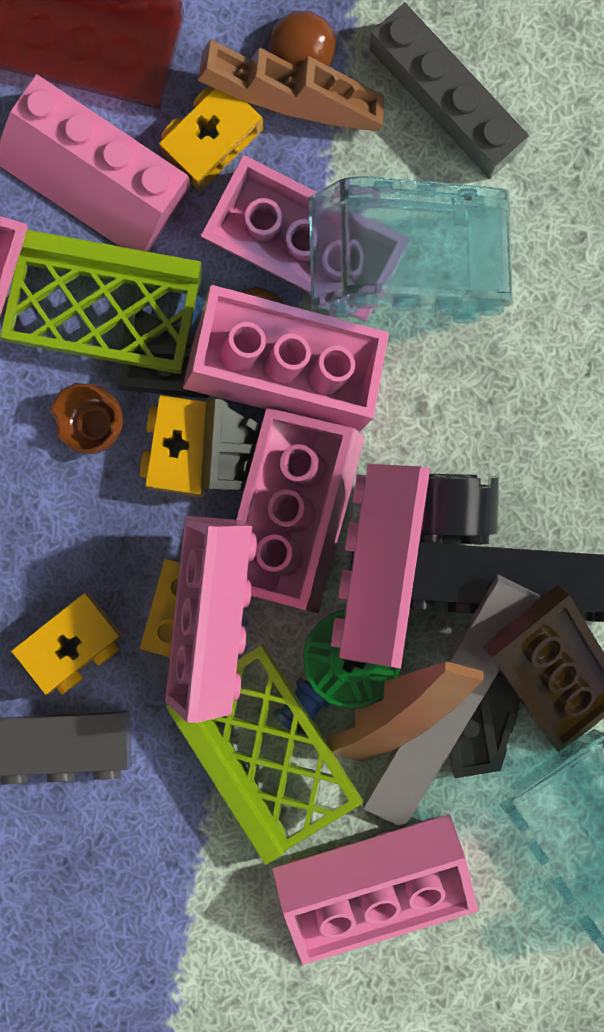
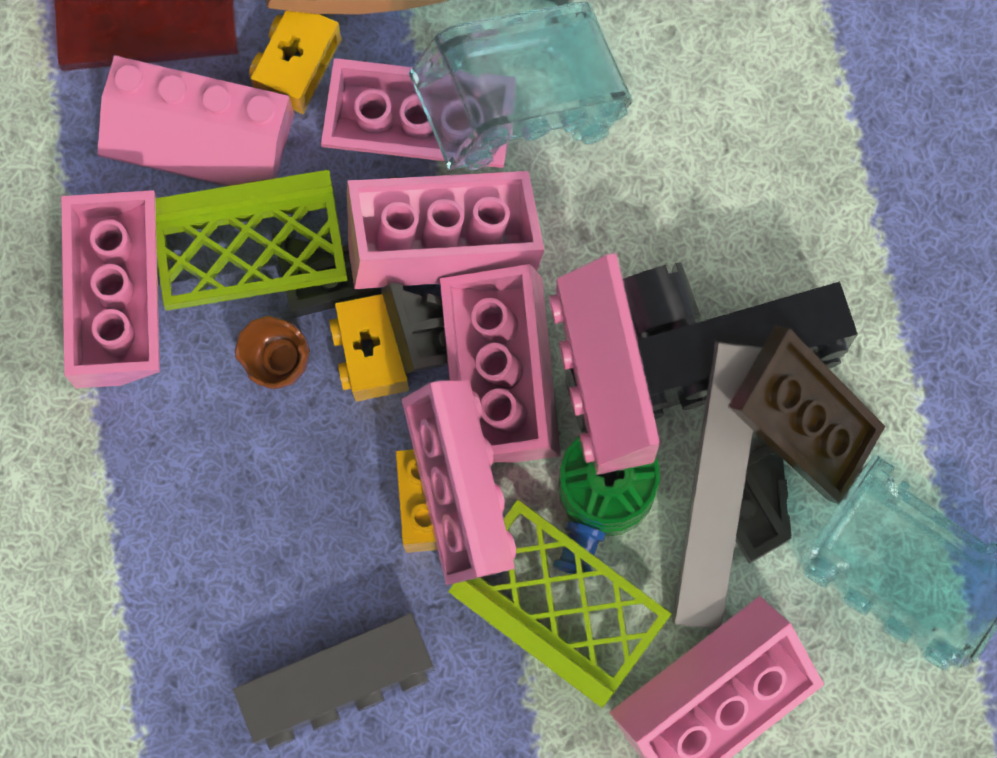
camera: 20 degrees left, 10 degrees down
(41, 650) = (308, 583): yellow brick -> none
(408, 710) = (682, 500): medium nougat slope -> none

